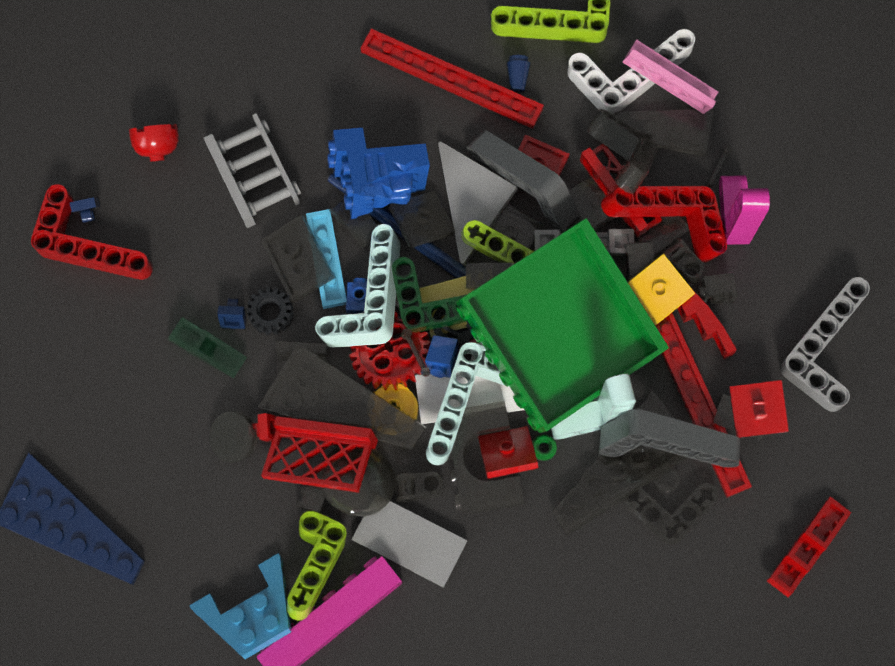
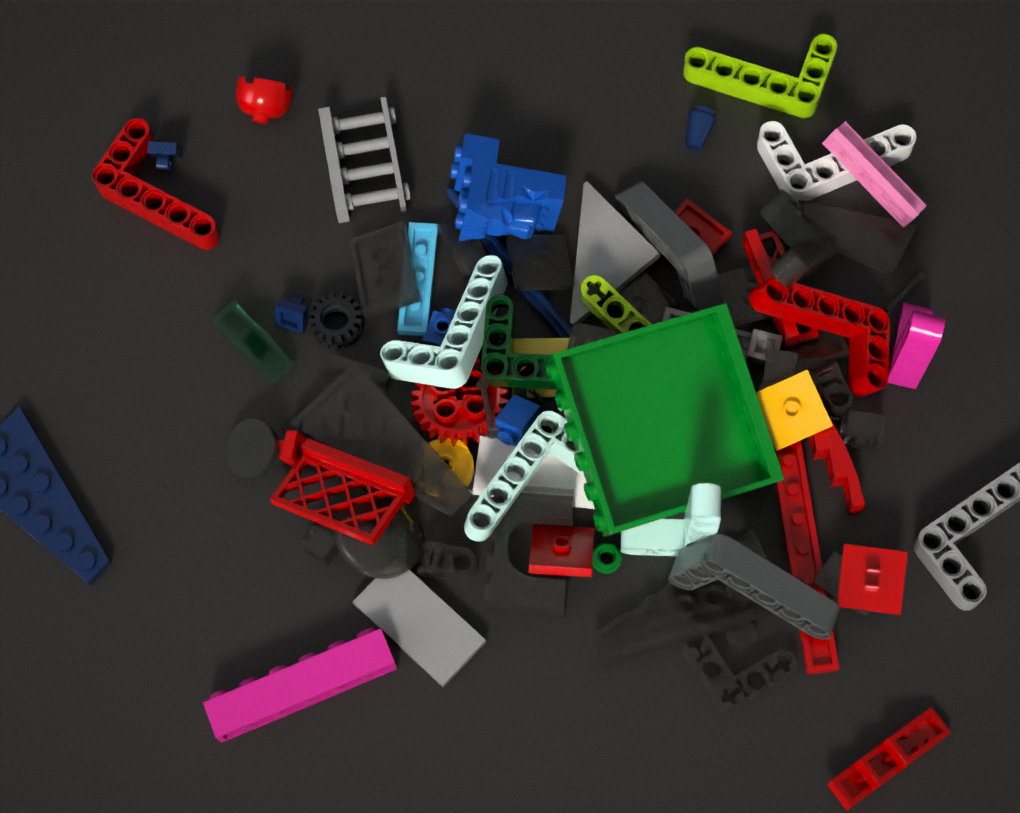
camera: 15 degrees right, 5 degrees down
(254, 621) = (217, 661): dark azure wing -> none
(314, 569) = (297, 620): lime beam -> none
(452, 78) = (622, 116): red plate -> none

